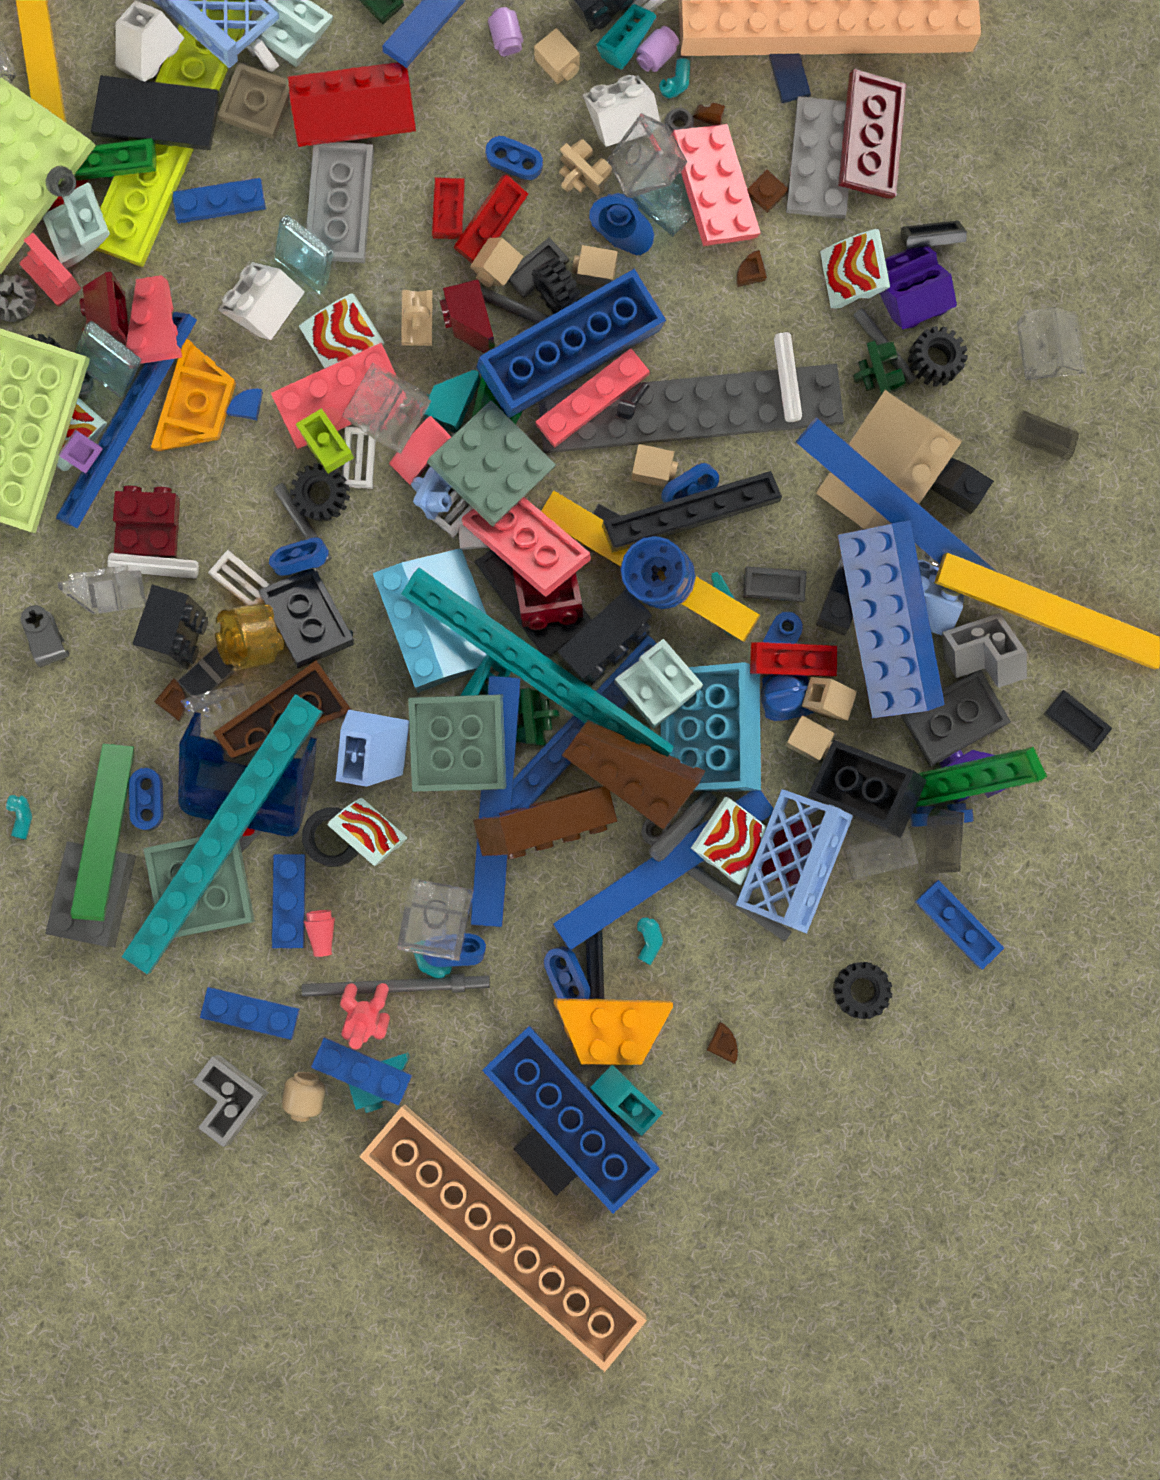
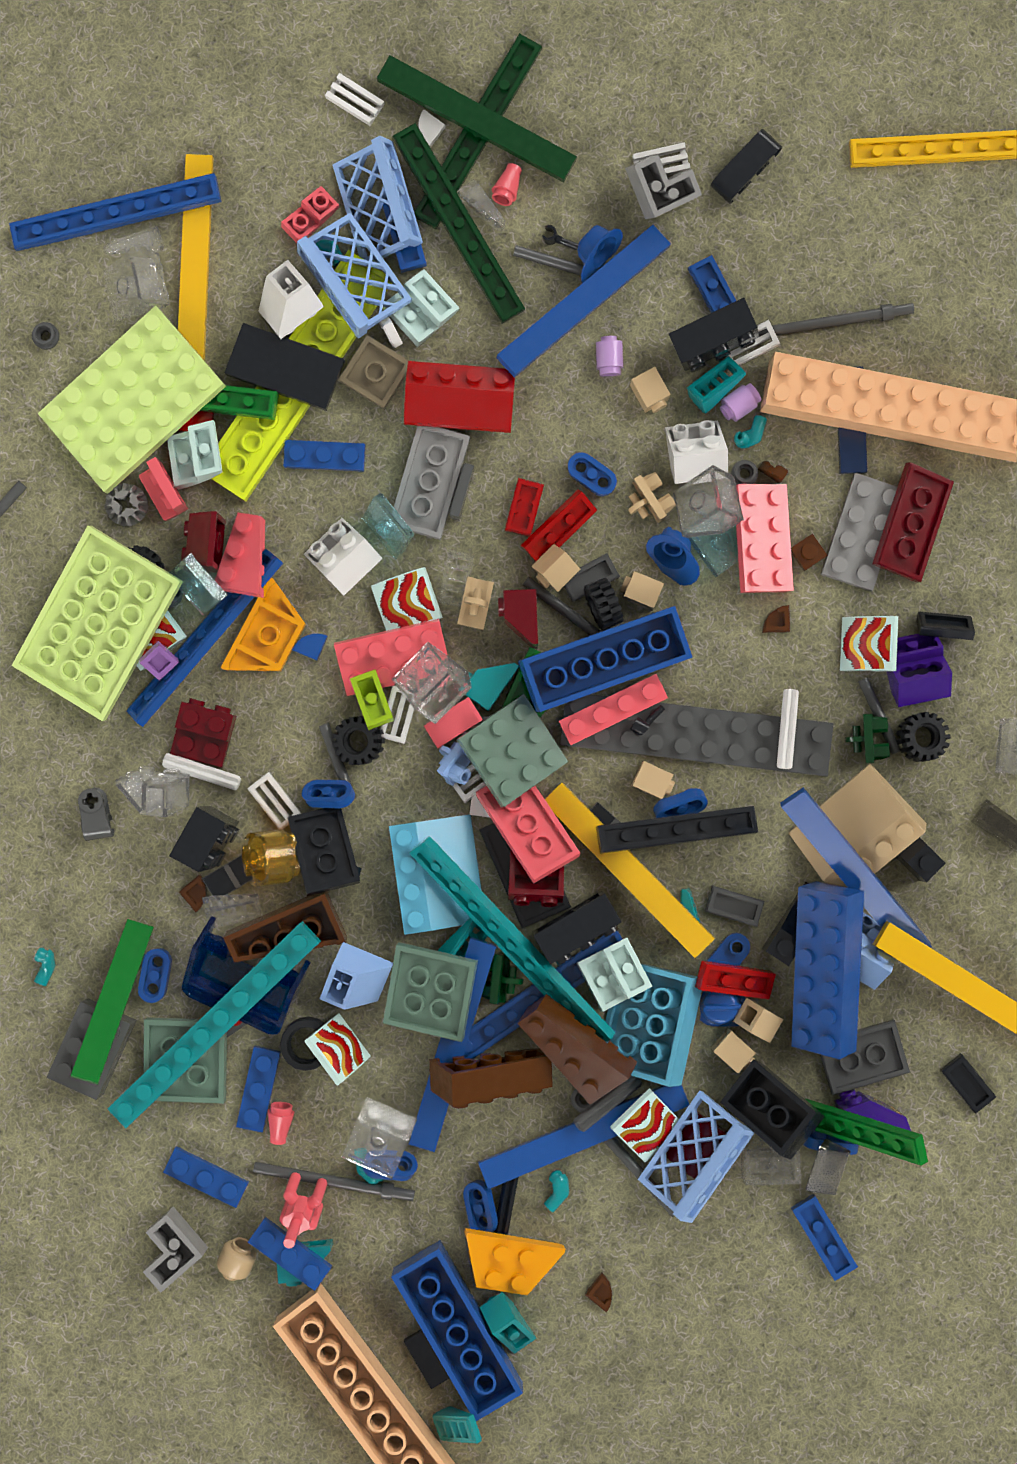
camera: 15 degrees right, 5 degrees up
(68, 182) = (189, 415): dark grey plate -> none
(376, 204) = (461, 491): none -> dark grey tile
(593, 1227) = (456, 1426): none -> teal slope
(641, 569) = (619, 890): blue wheel -> none
(881, 995) = (734, 1290): black tyre -> none
(986, 645) = (903, 1004): light grey brick -> none

